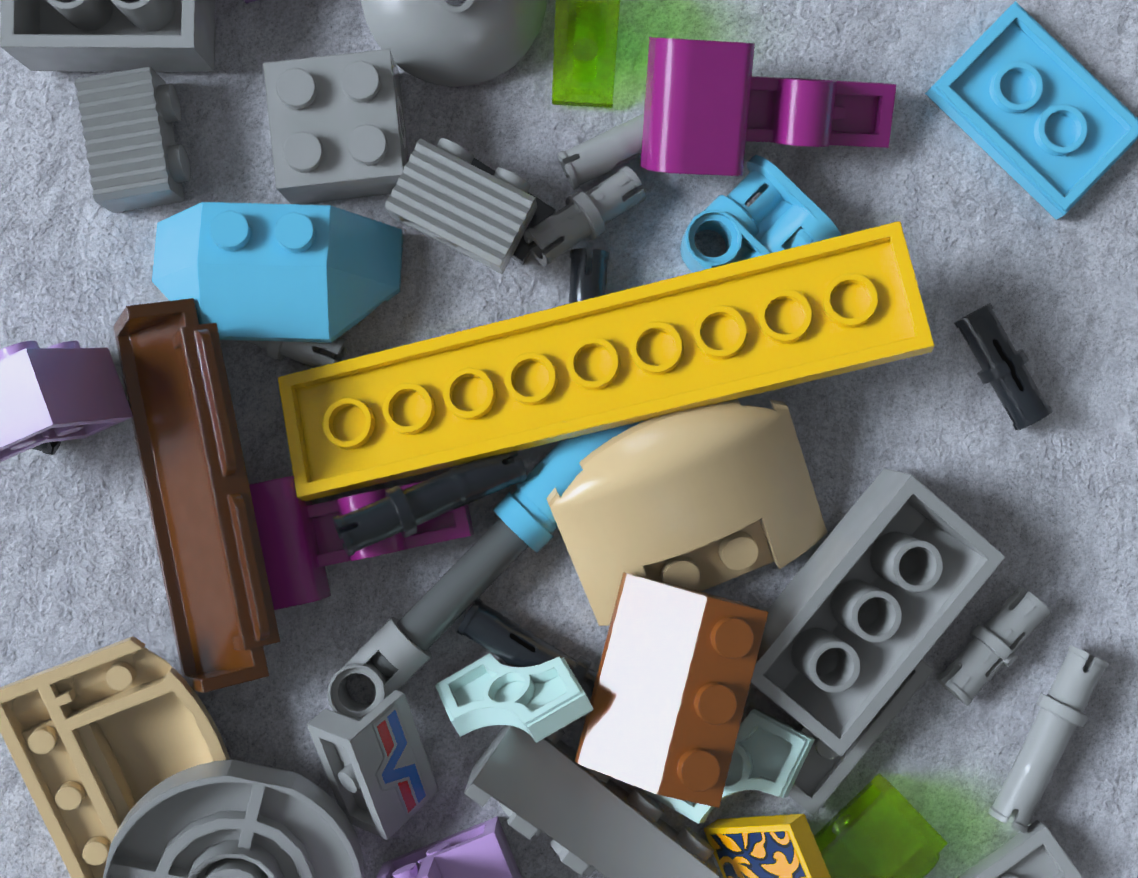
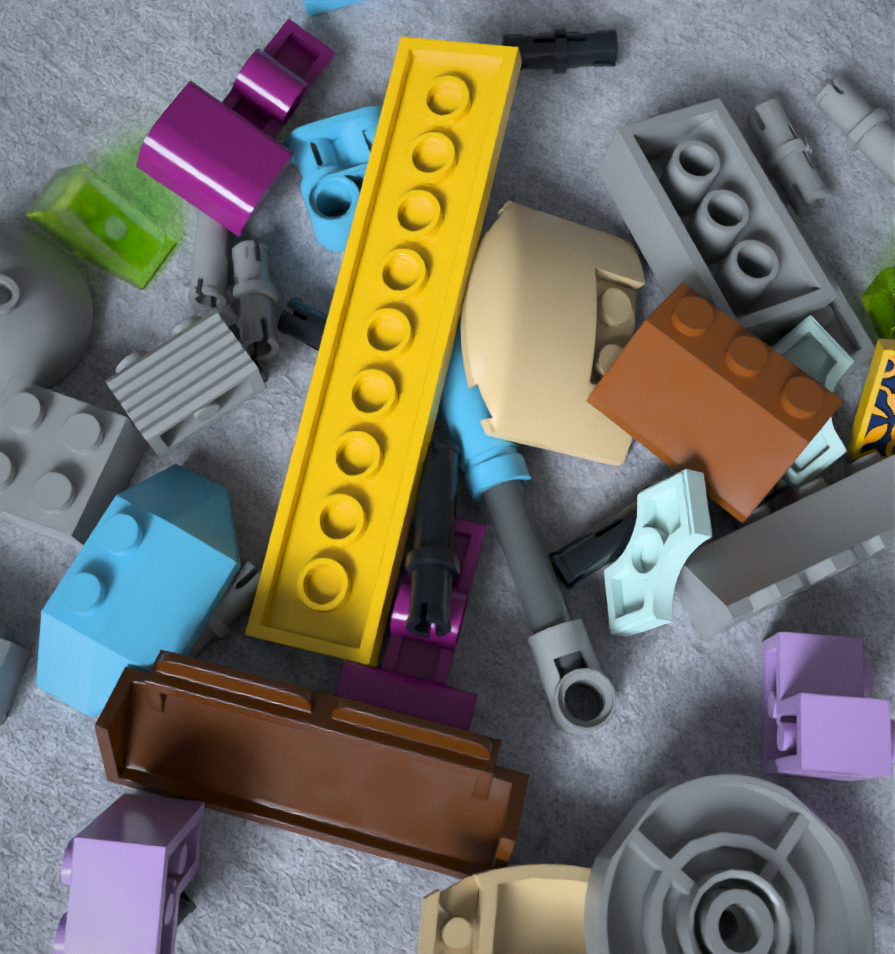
camera: 60 degrees left, 15 degrees down
(375, 764) = (663, 722): light grey panel -> none

